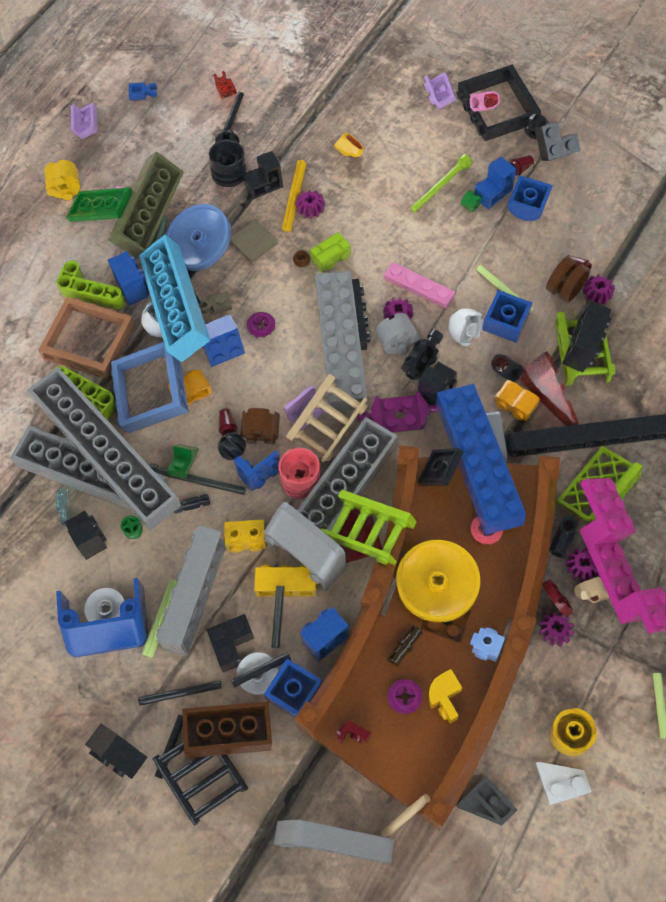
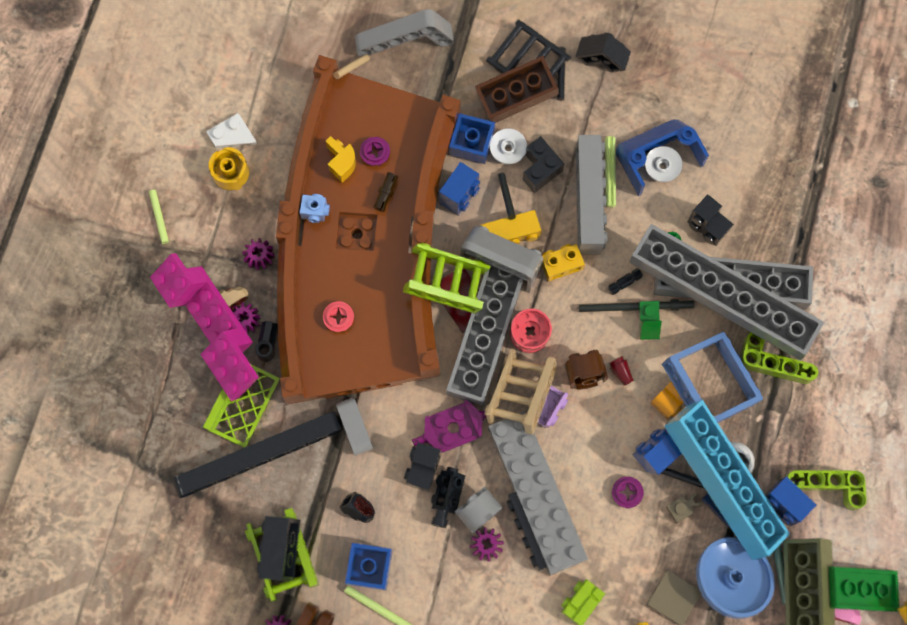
camera: 160 degrees right, 10 degrees up
(62, 505) = (745, 245): clear light blue tile -> none
(77, 362) = (809, 395): nougat window -> none
(180, 693) = (569, 116): black bar -> none
(231, 446) = (607, 343): black piece -> none
(257, 476) = (581, 317): blue bracket -> none
(260, 670) = (505, 147): black bar -> none
(301, 254) = (605, 587): reddish brown plate -> none
(357, 733) = (409, 111): dark red bracket -> none
(419, 285) = (474, 589): bright pink plate -> none
(438, 580) = (370, 251): yellow dish -> none
(440, 467) = (395, 360): black tile -> none
(465, 325) = (412, 544): white cylinder -> none
(482, 461) = (361, 383): blue brick -> none
(488, 803) = (287, 100): dark grey wing -> none
(516, 400) = (339, 472): light orange brick -> none
(542, 381) = (316, 498): clear red wedge -> none
(558, 598) = (261, 276): dark red tile -> none

